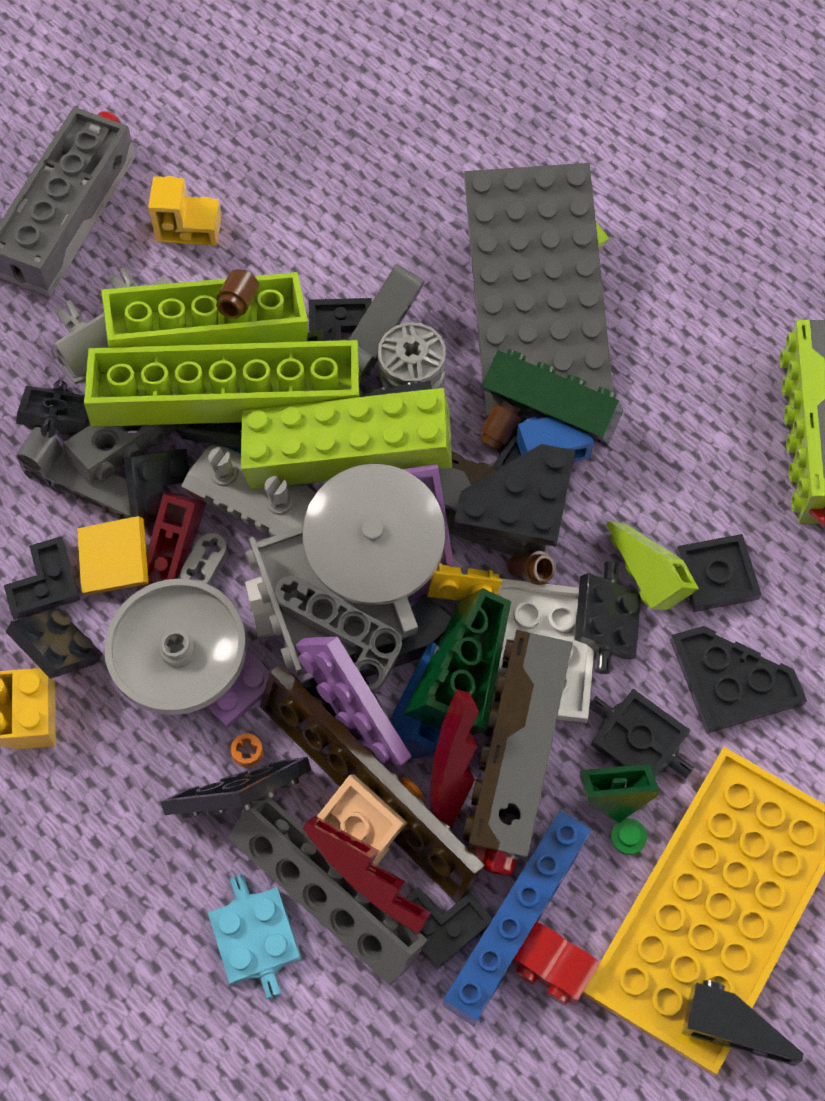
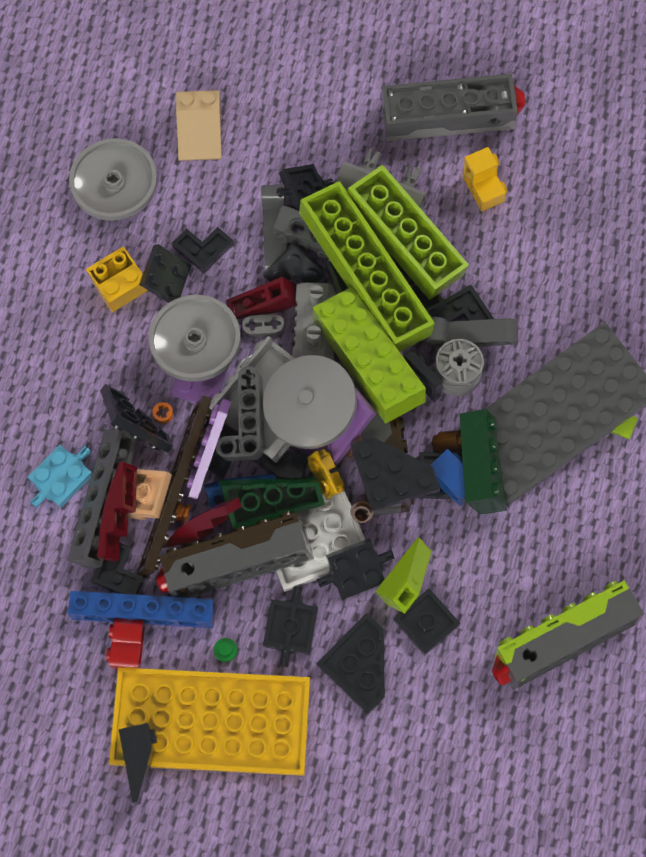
camera: 65 degrees right, 5 degrees up
(112, 555) = (236, 274): yellow tile -> none
(237, 293) = (423, 239): reddish brown brick -> none
(619, 789) = (245, 627): dark green slope -> none

